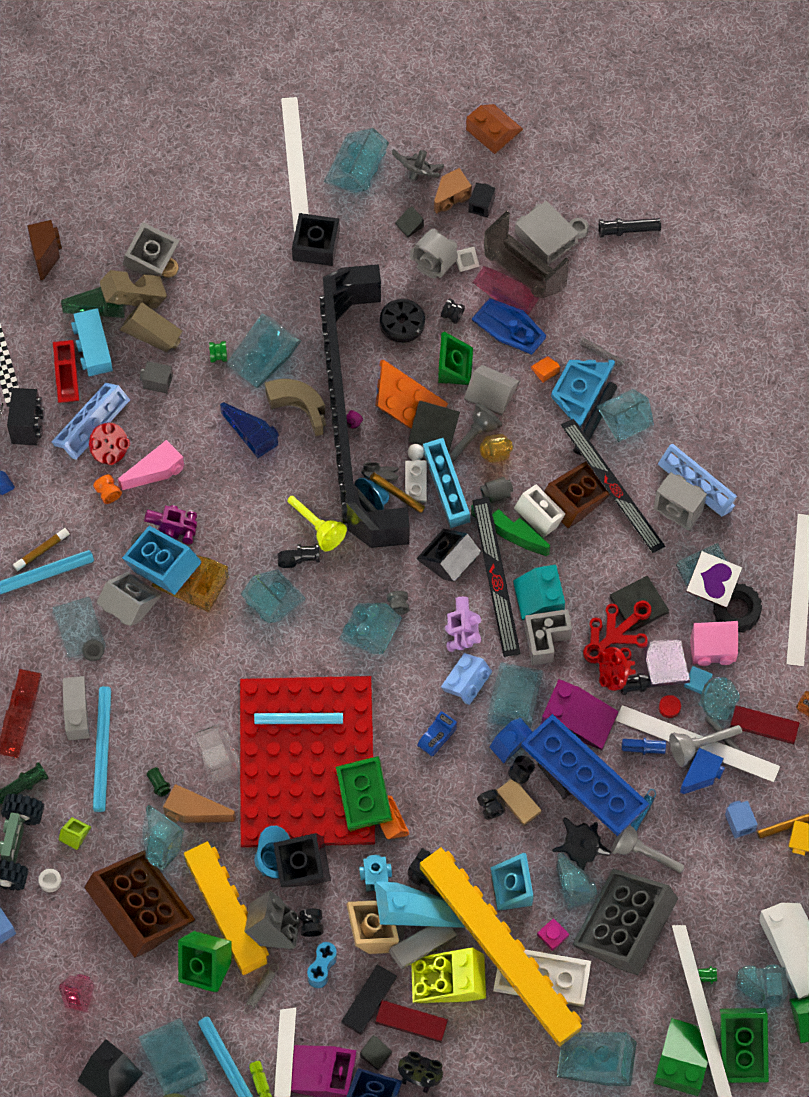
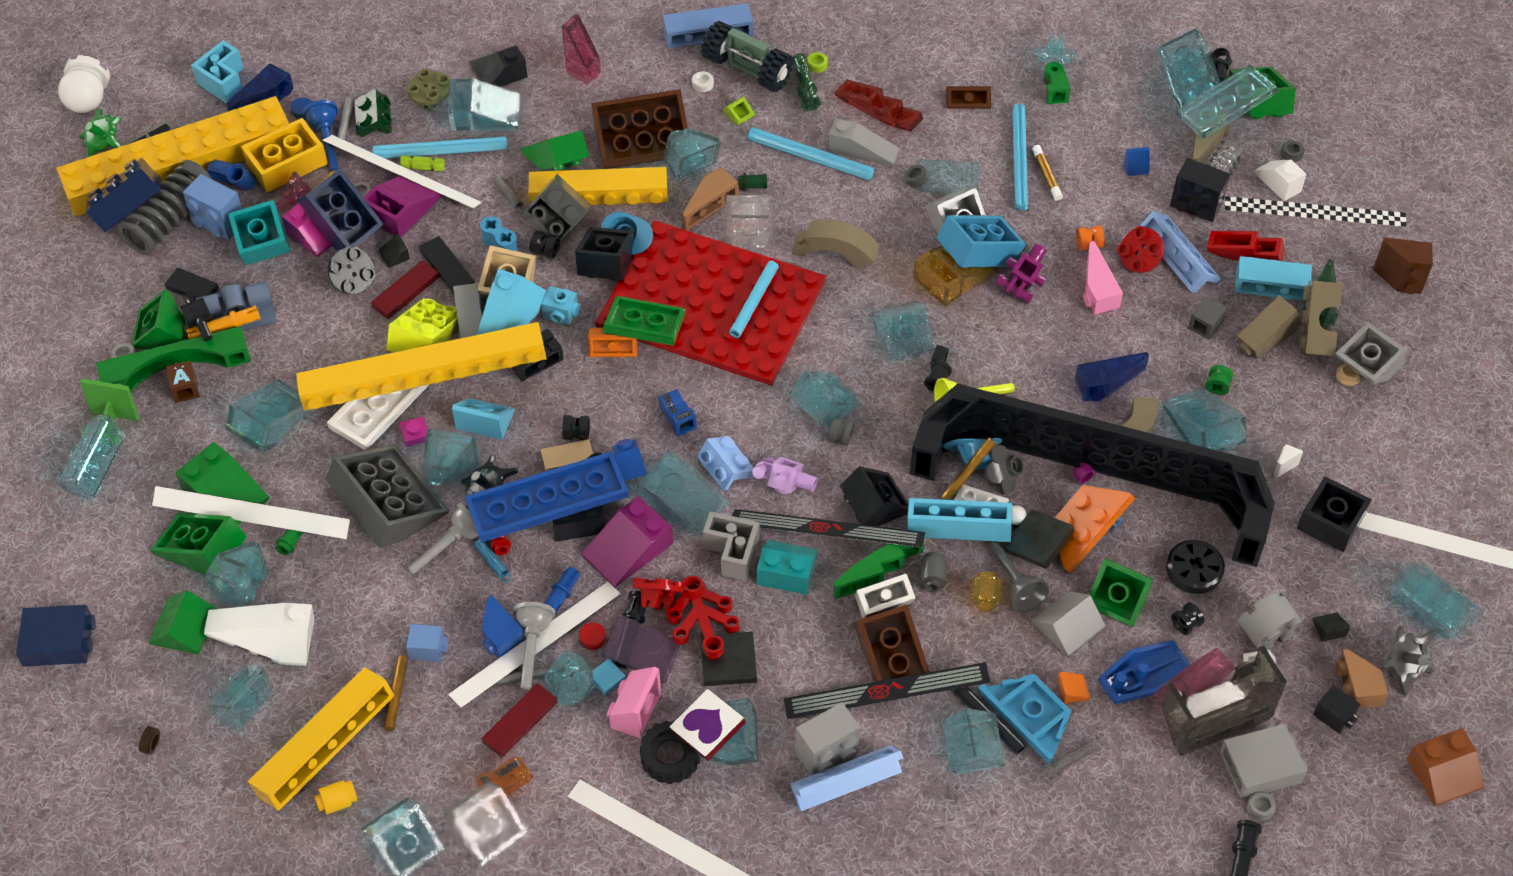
camera: 115 degrees right, 10 degrees down
(207, 682) = (839, 237): none -> dark tan arch
(277, 286) = (1287, 460): none -> white slope

